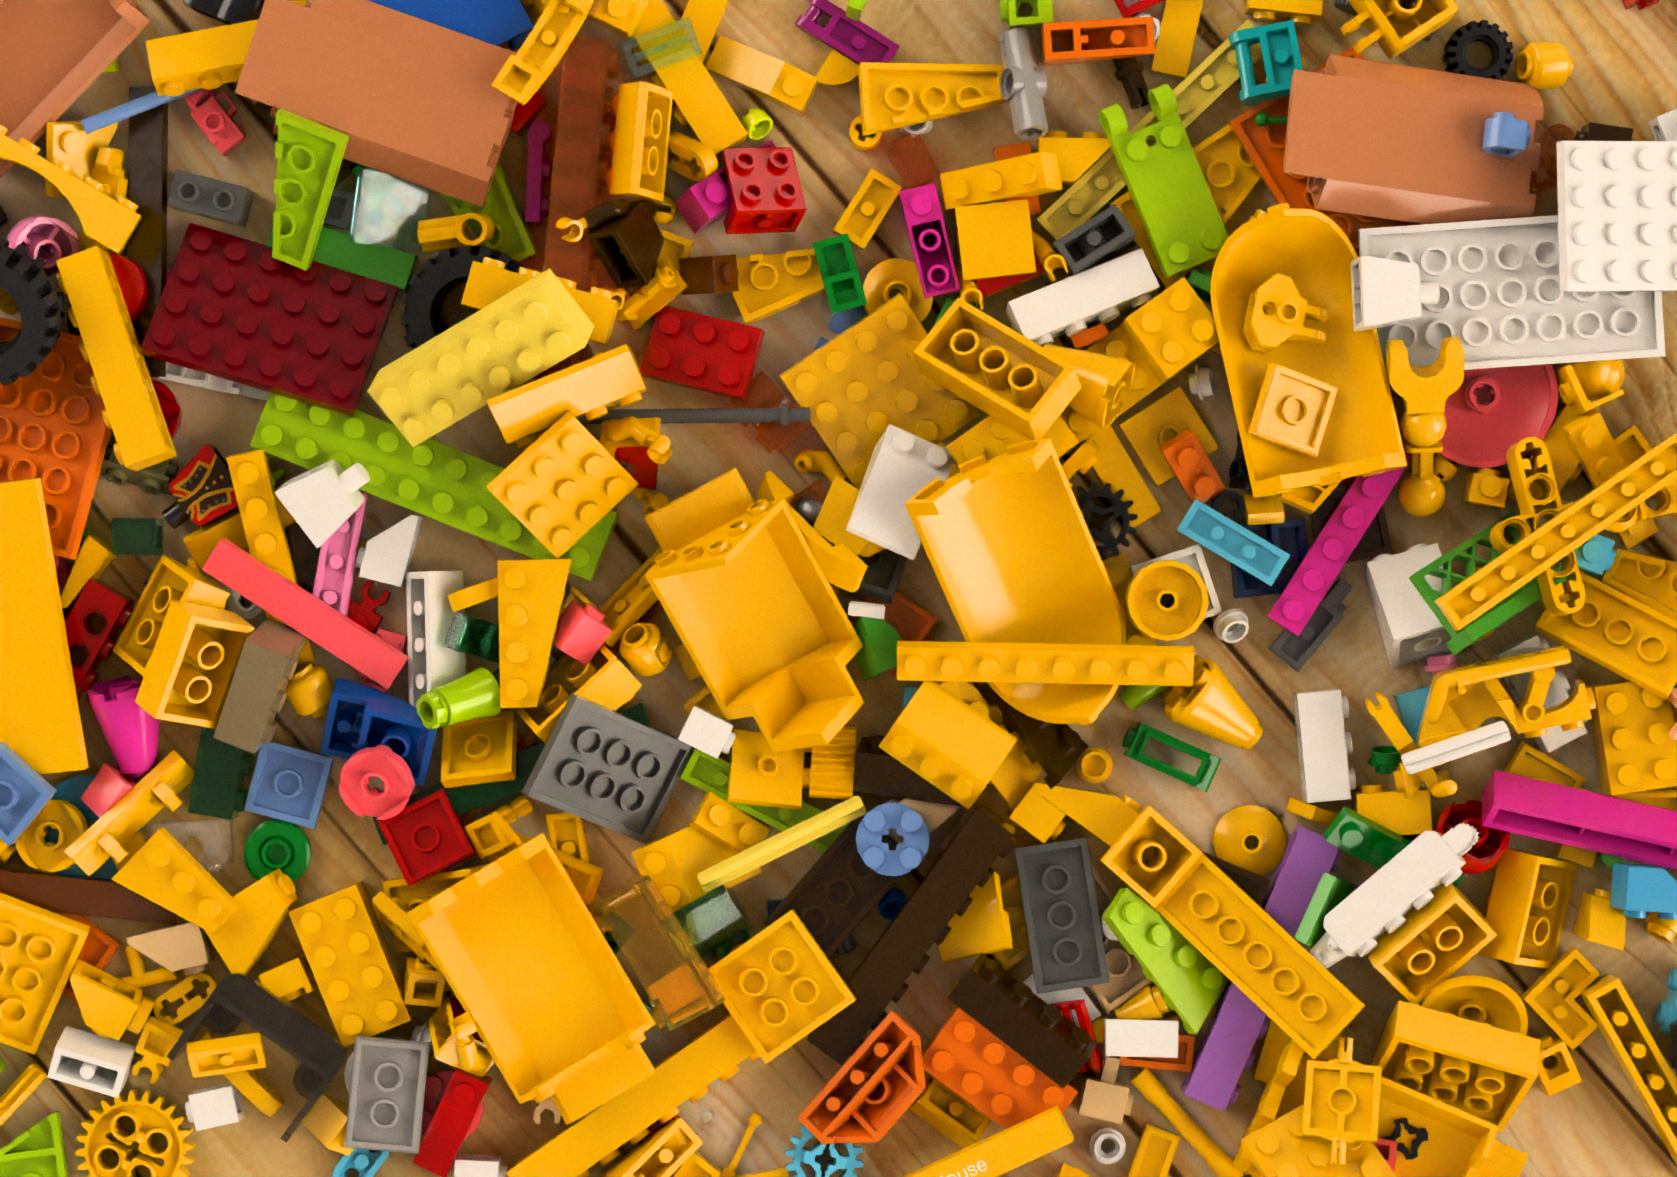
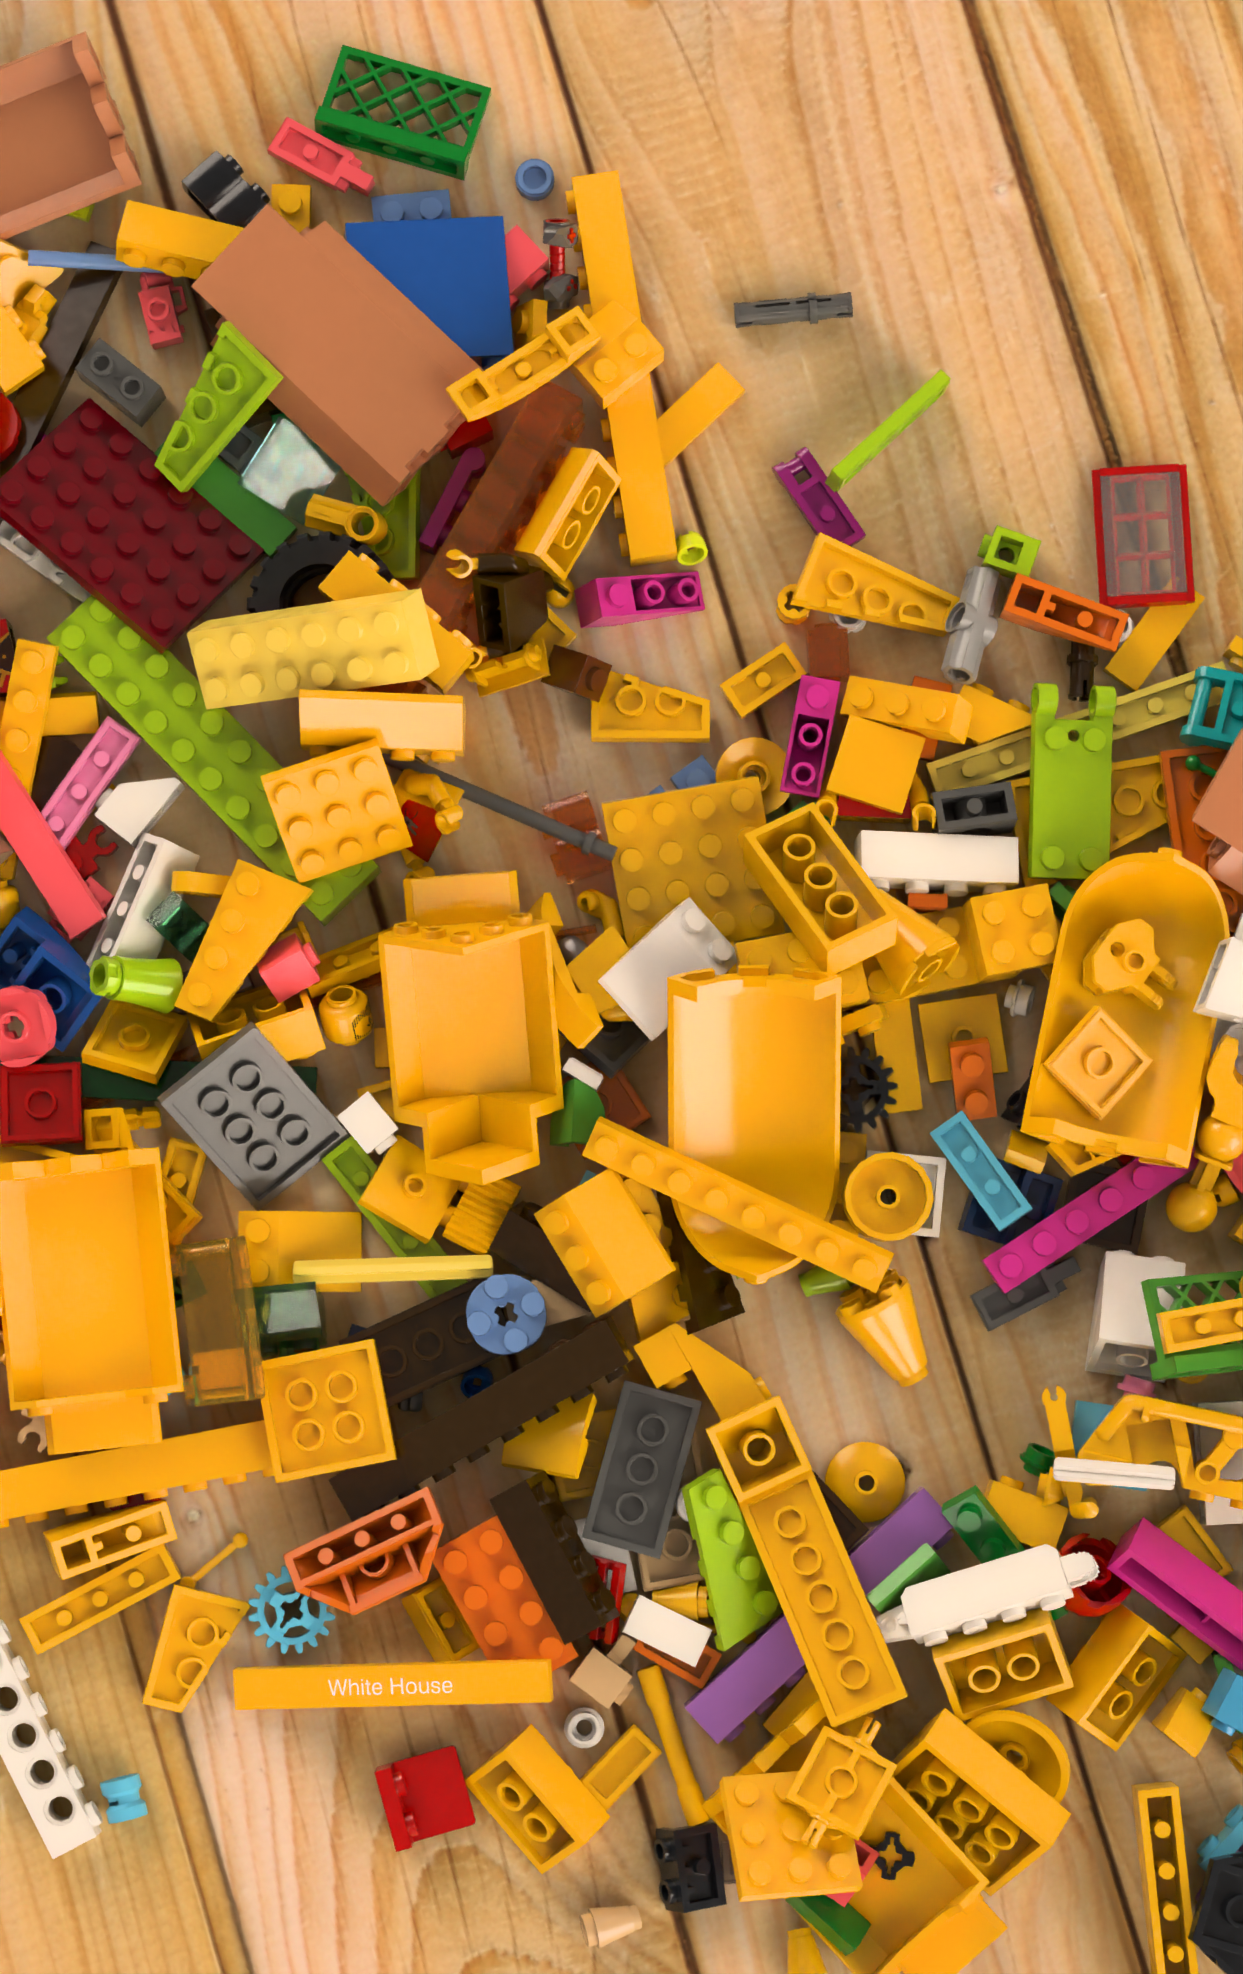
camera: 20 degrees right, 5 degrees down
(323, 498) = (95, 721): white torso -> none
(665, 61) = (624, 445): clear light blue tile -> none
(690, 157) = (610, 551): yellow beam -> none
(702, 352) = (535, 747): red plate -> none
(727, 824) = (347, 1226): yellow plate -> none
(763, 75) = (719, 504): yellow slope -> none
(763, 190) = (667, 615): red bracket -> none
(837, 70) = (793, 532): yellow tile -> none
(839, 273) = (706, 729): green slope -> none
(1094, 765) = (742, 1334): yellow plate -> none
(1136, 740) = (793, 1328): green window -> none
(1231, 625) = (942, 1255): white plate -> none
(1238, 512) = (999, 1144): black bush -> none
(1310, 811) = (939, 1478): yellow tile -> none
(1323, 745) = (982, 1417): white brick -> none
(1554, 997) = (1106, 1777): yellow plate -> none
(1562, 1073) = (1081, 1861): yellow brick -> none

